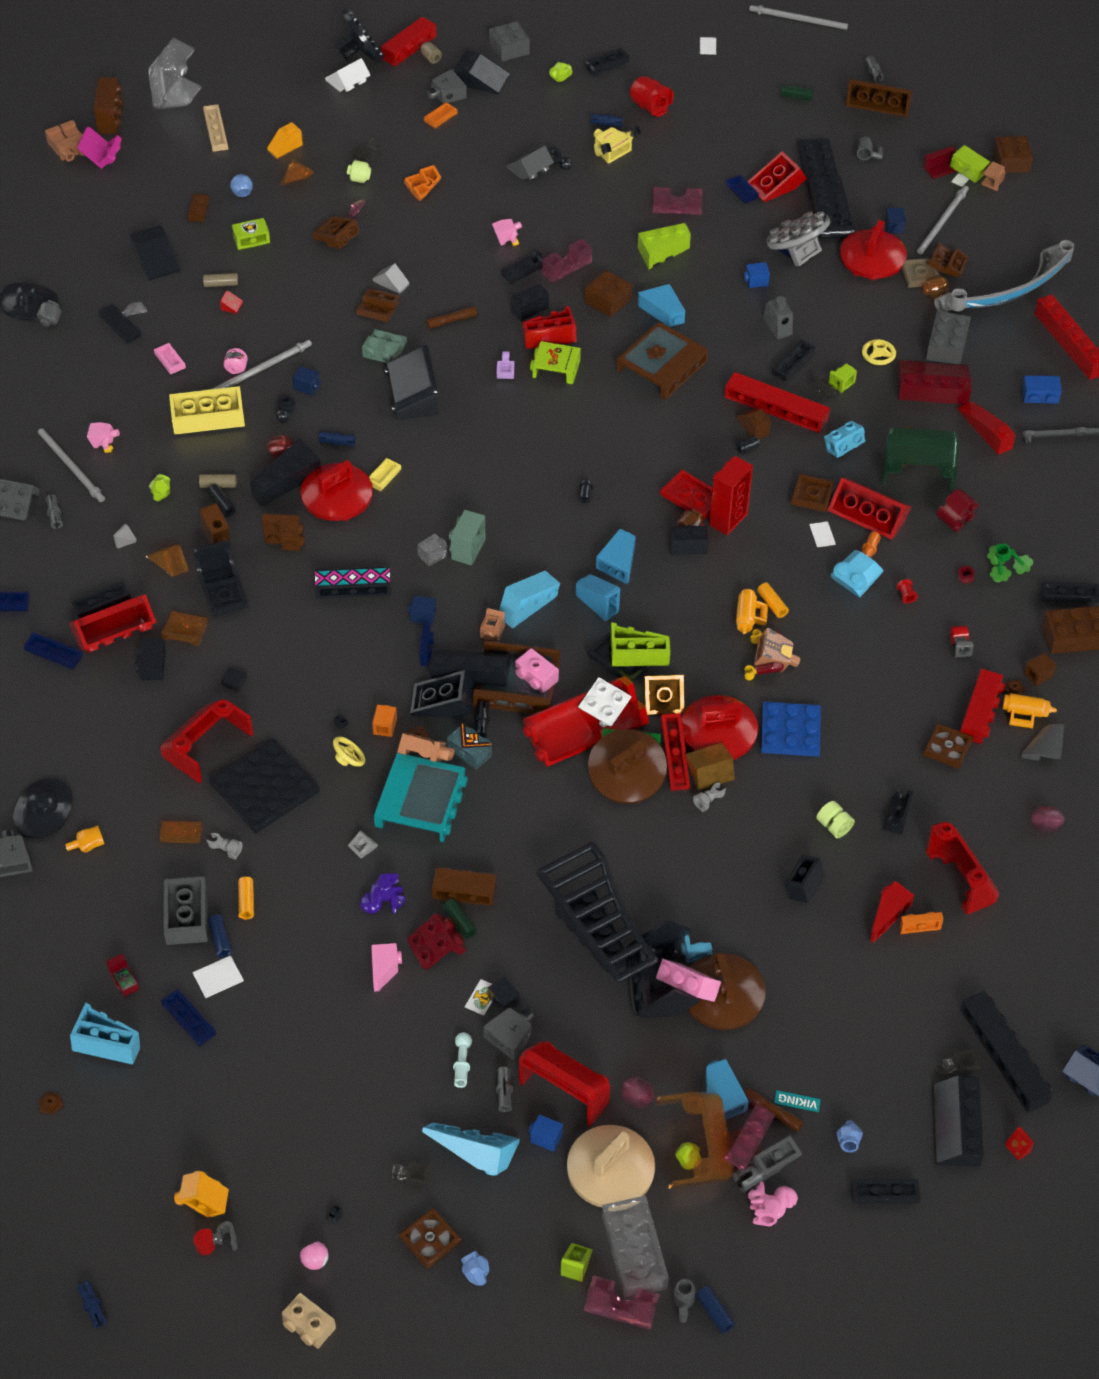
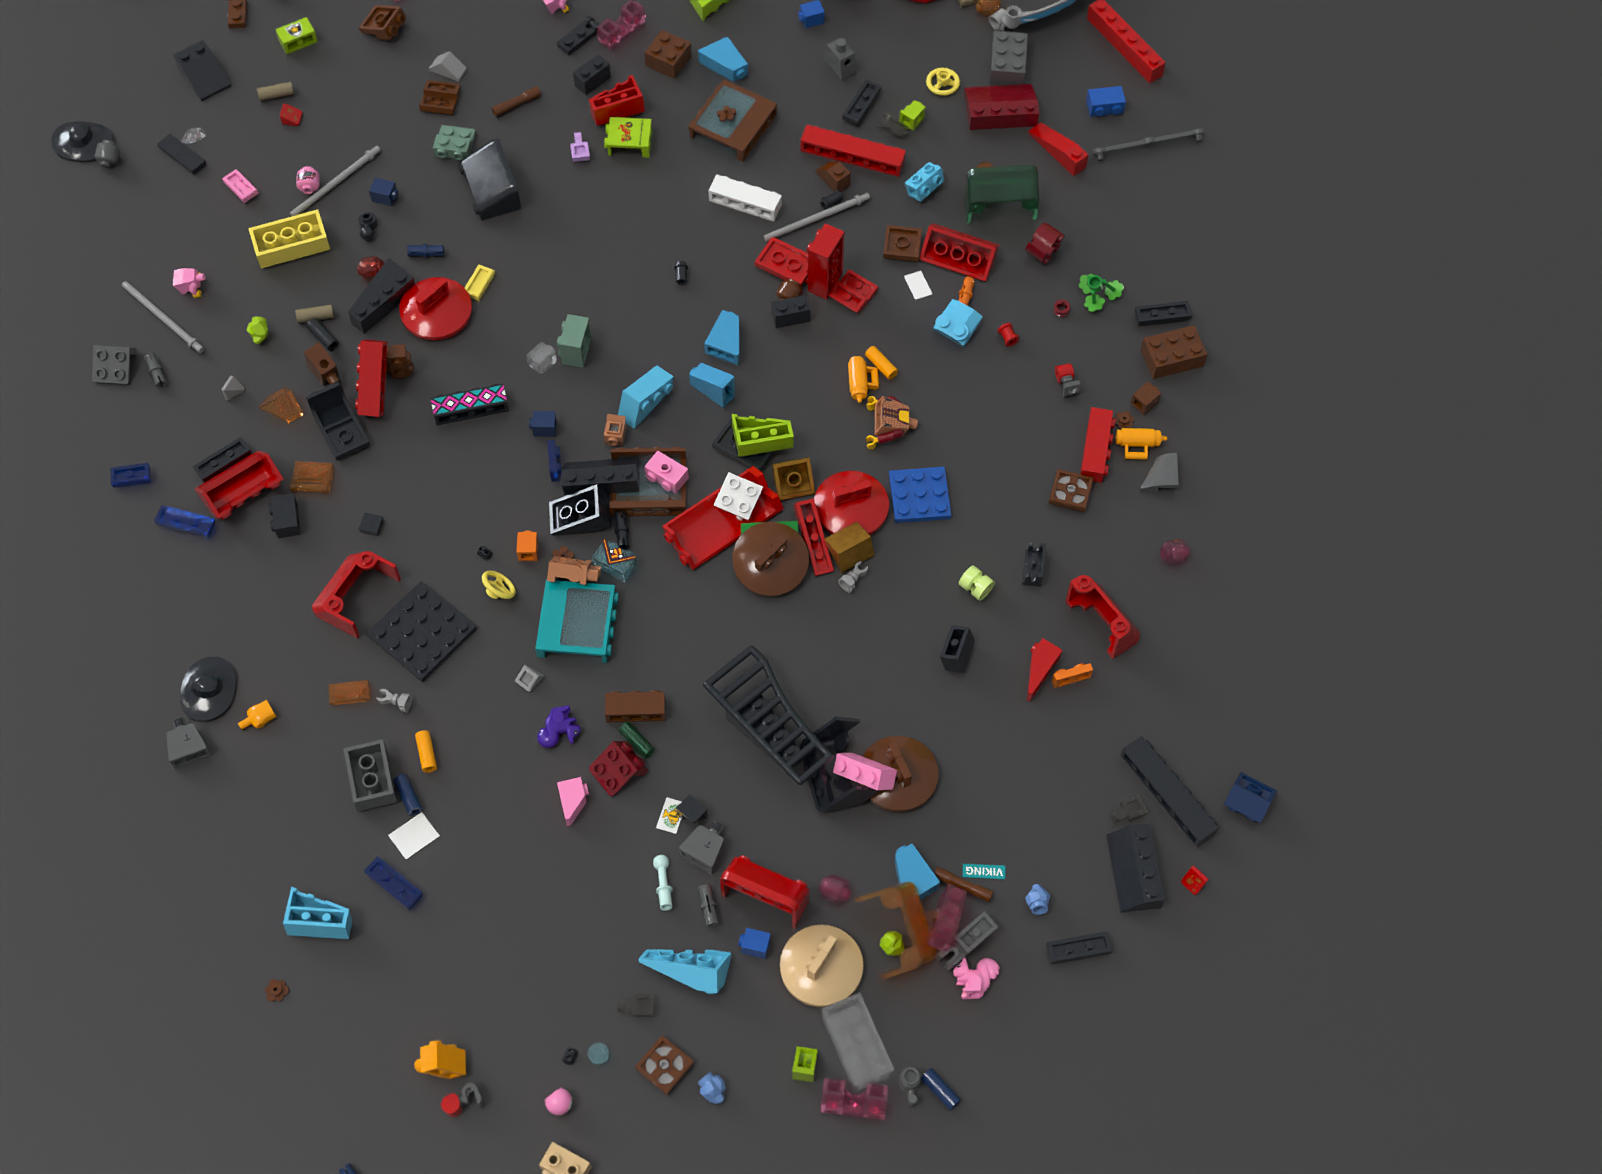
camera: 10 degrees left, 10 degrees up
(122, 975) = (321, 851): dark red leg -> none
(261, 542) = (371, 377): none -> red brick
(364, 1215) = (598, 1053): none -> clear light blue plate
(661, 431) = (745, 197): none -> white brick
(695, 951) = (866, 738): medium azure bracket -> none
(755, 531) = (853, 291): none -> red slope
(774, 448) = (857, 200): none -> light grey bar

